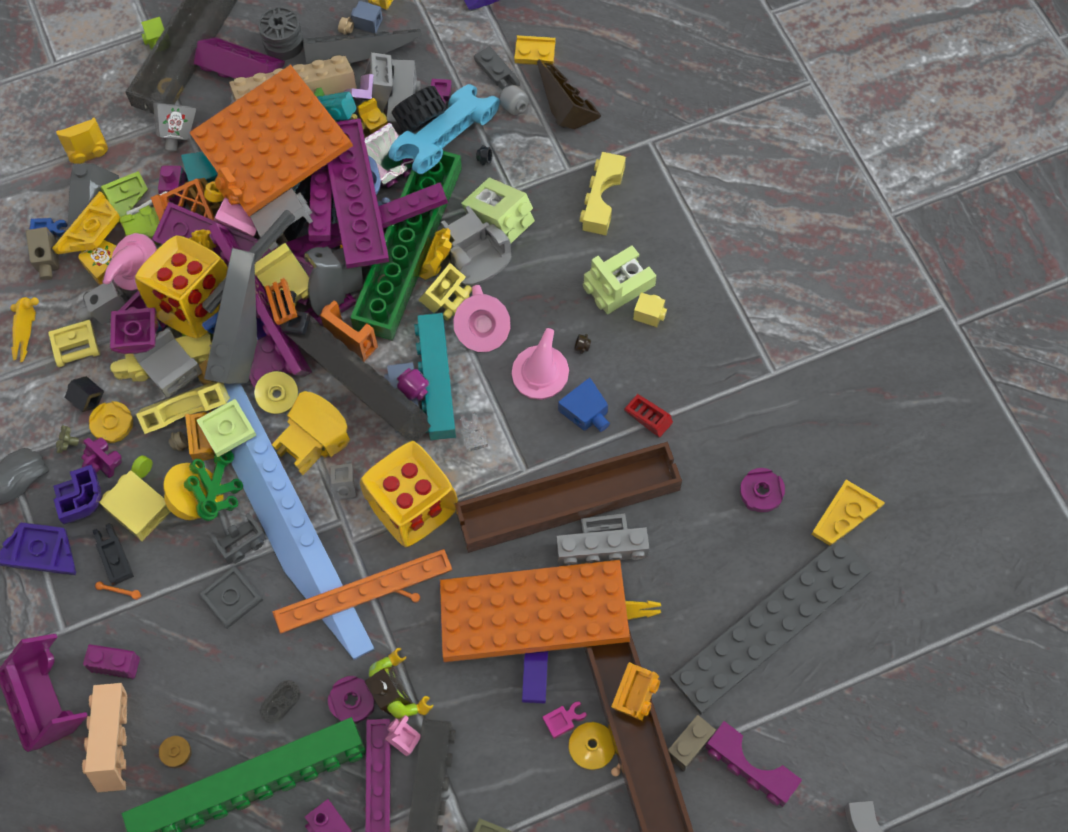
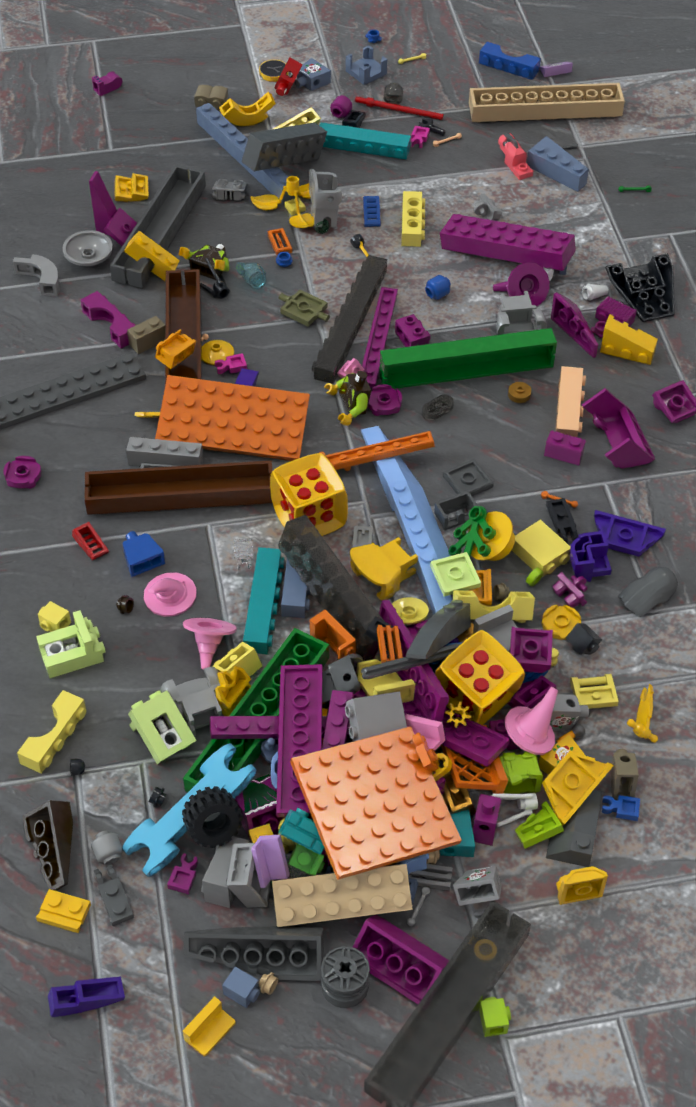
camera: 170 degrees left, 15 degrees down
(65, 439) = (602, 609): olive plant -> none
(413, 384) = (285, 576): magenta head -> none
(568, 168) = (77, 766): none -> black hinge

